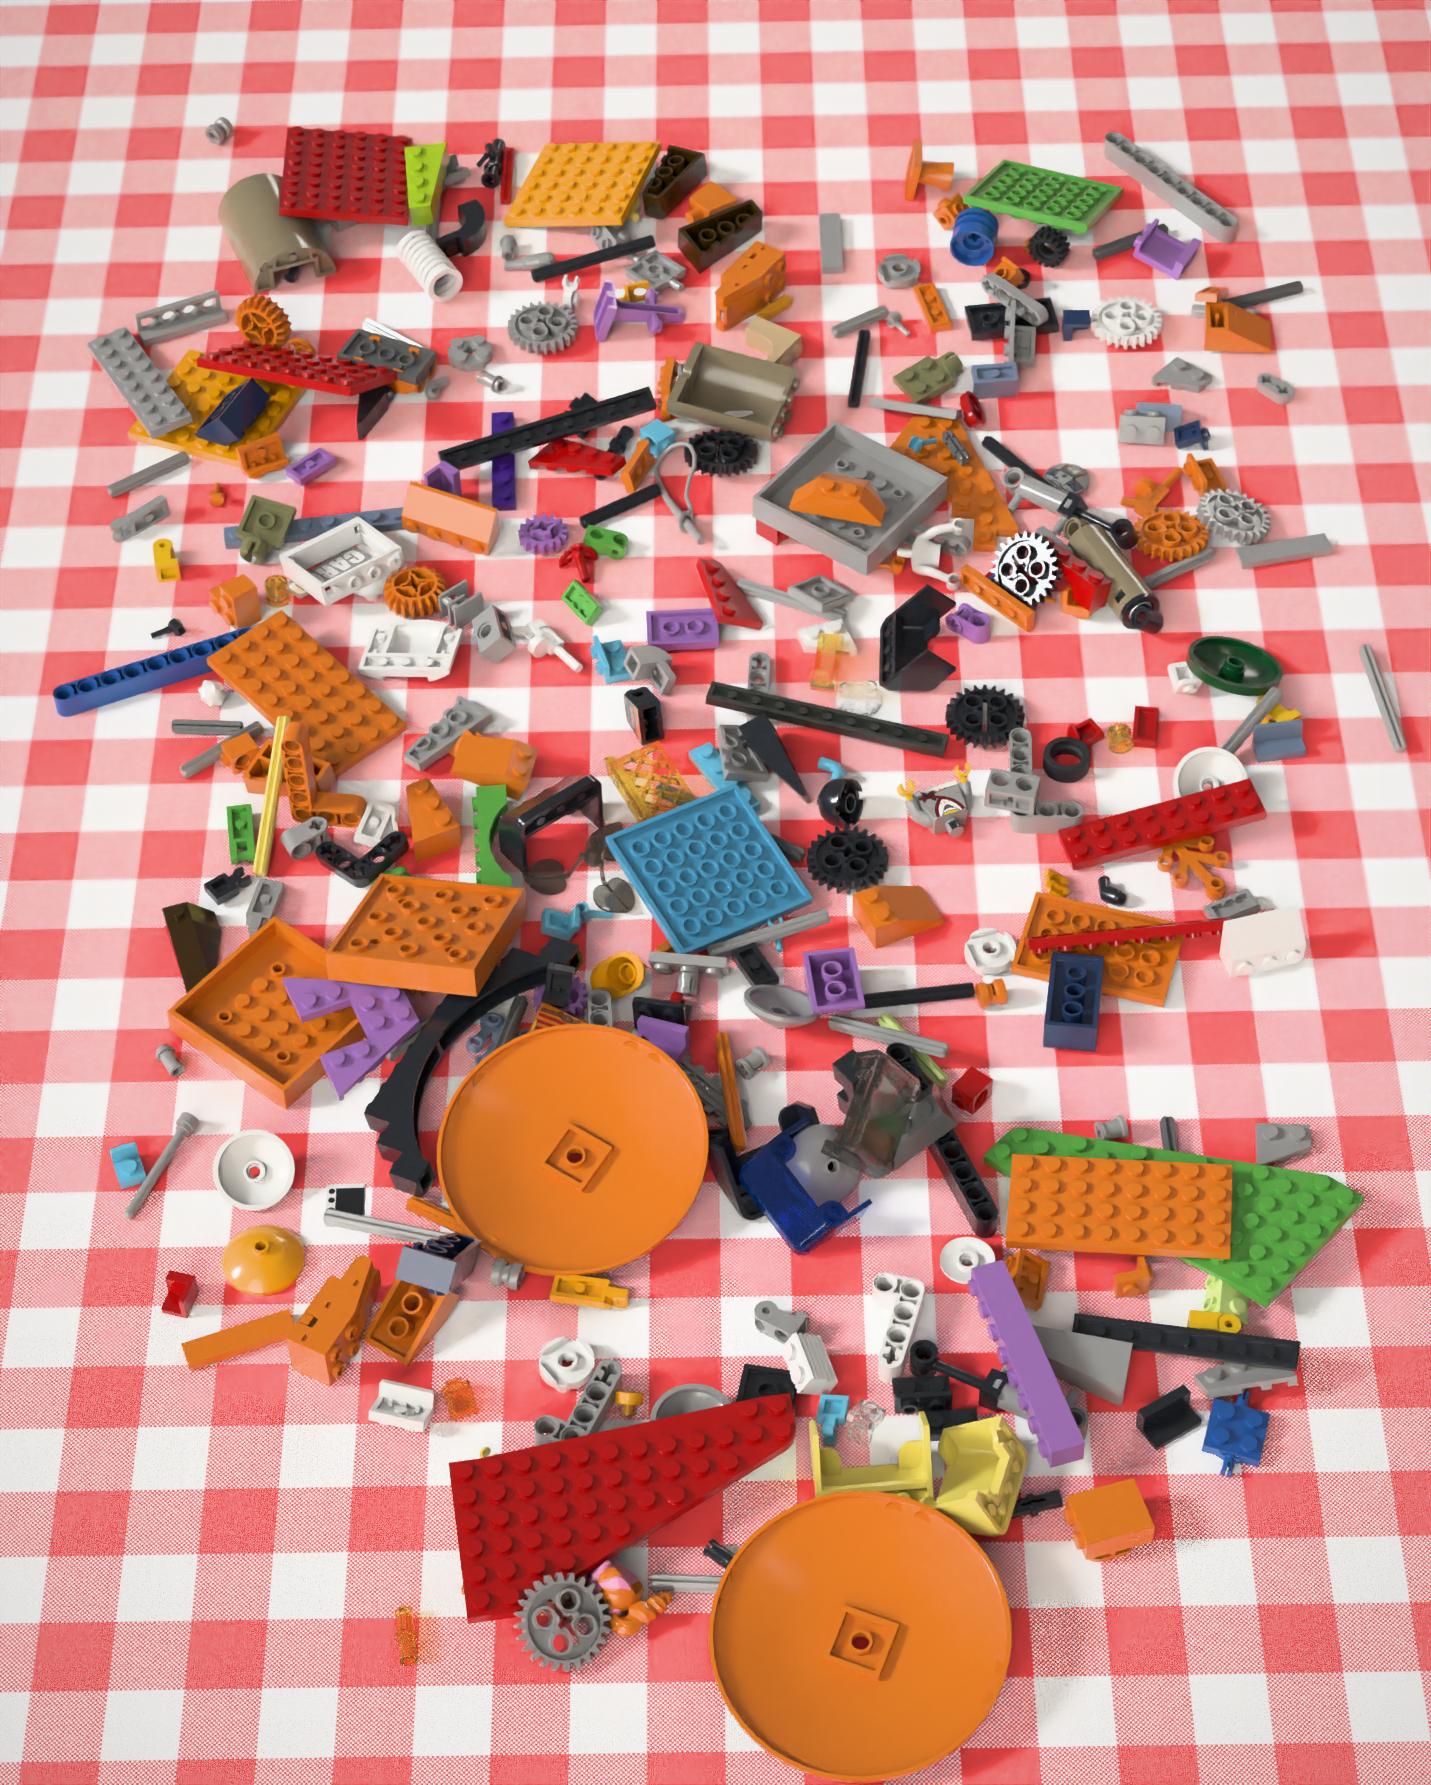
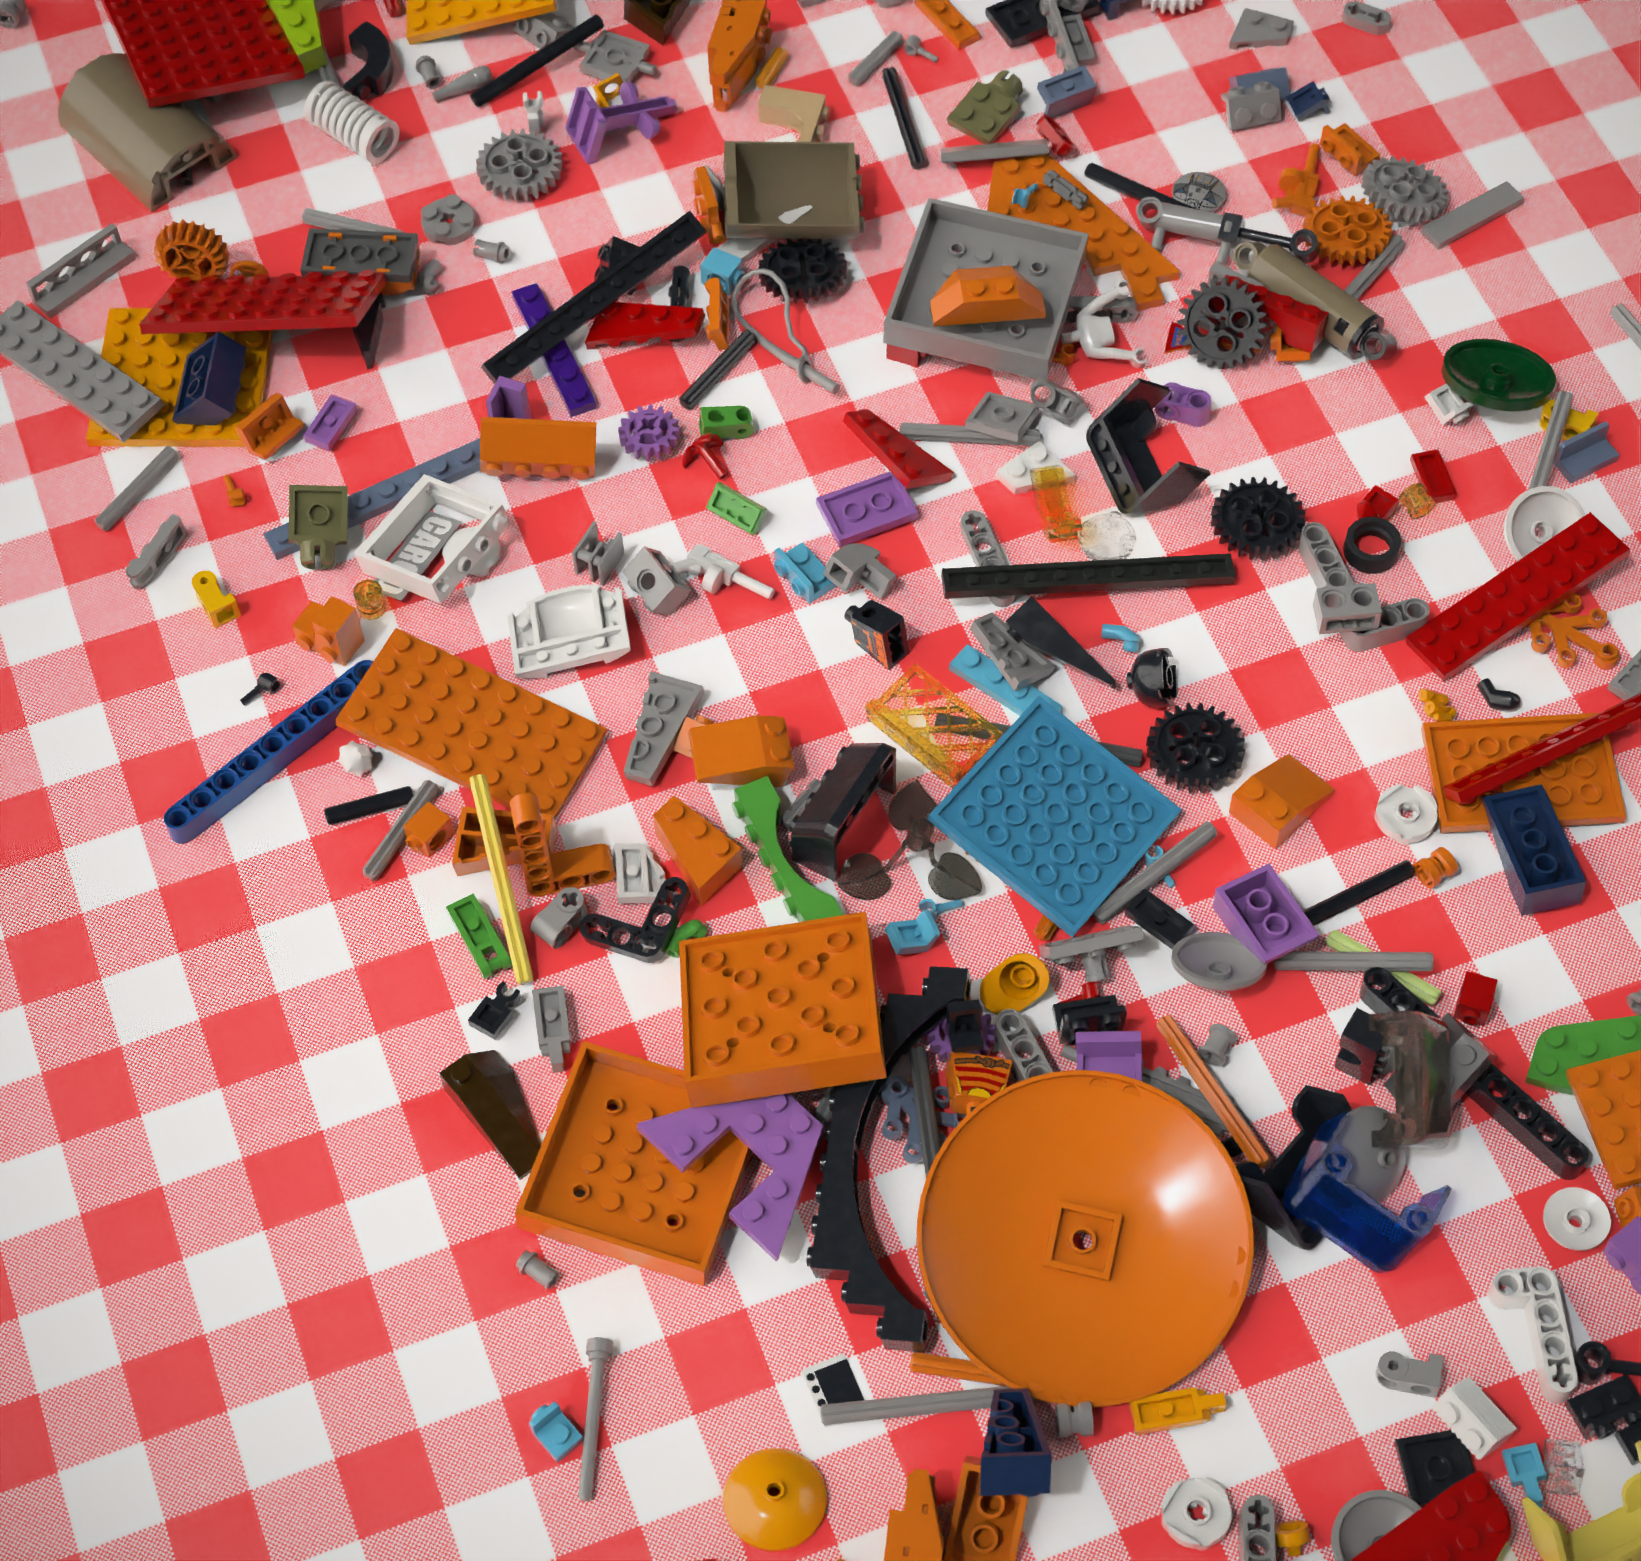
camera: 20 degrees left, 10 degrees up
(248, 1151) = (733, 1403): white dish -> none
(414, 591) = (531, 560): orange gear -> none
(870, 594) = (1057, 400): none -> light grey piece
(941, 806) = (1268, 646): light grey torso -> none
(997, 598) = (1199, 364): orange tile -> none

